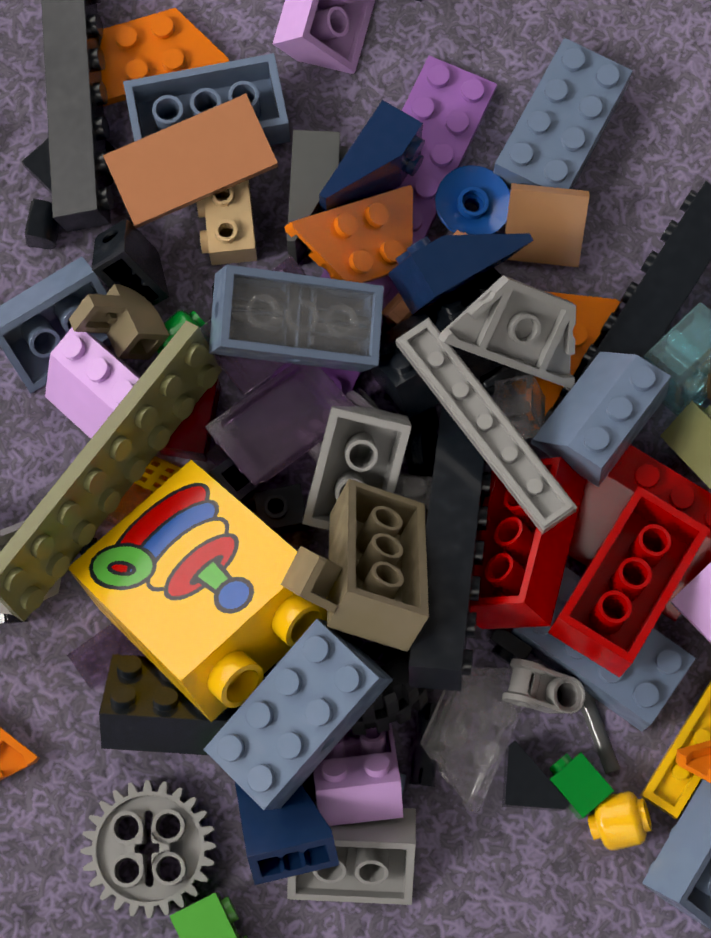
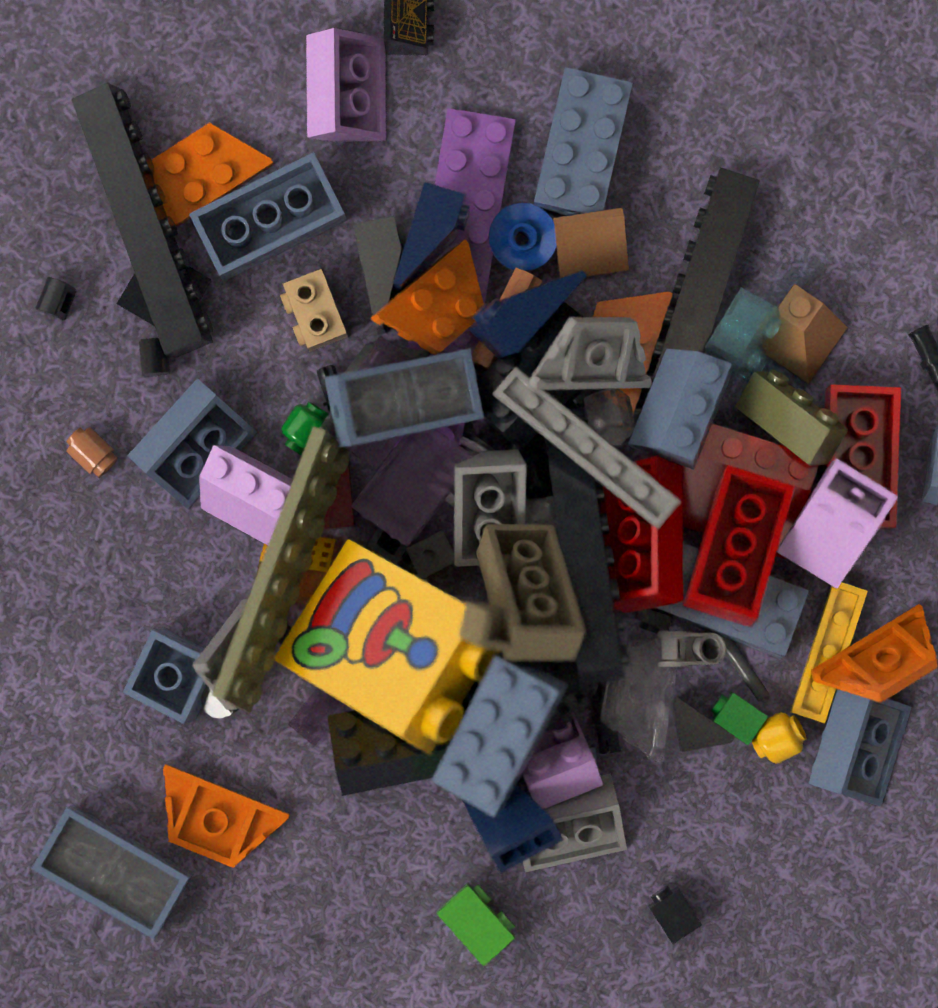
camera: 10 degrees left, 10 degrees up
(111, 850) = (372, 872): light grey gear -> none
(124, 255) = (242, 377): black torso -> none
(127, 320) = (256, 428): dark tan brick -> none
(190, 160) = (270, 273): nougat tile -> none

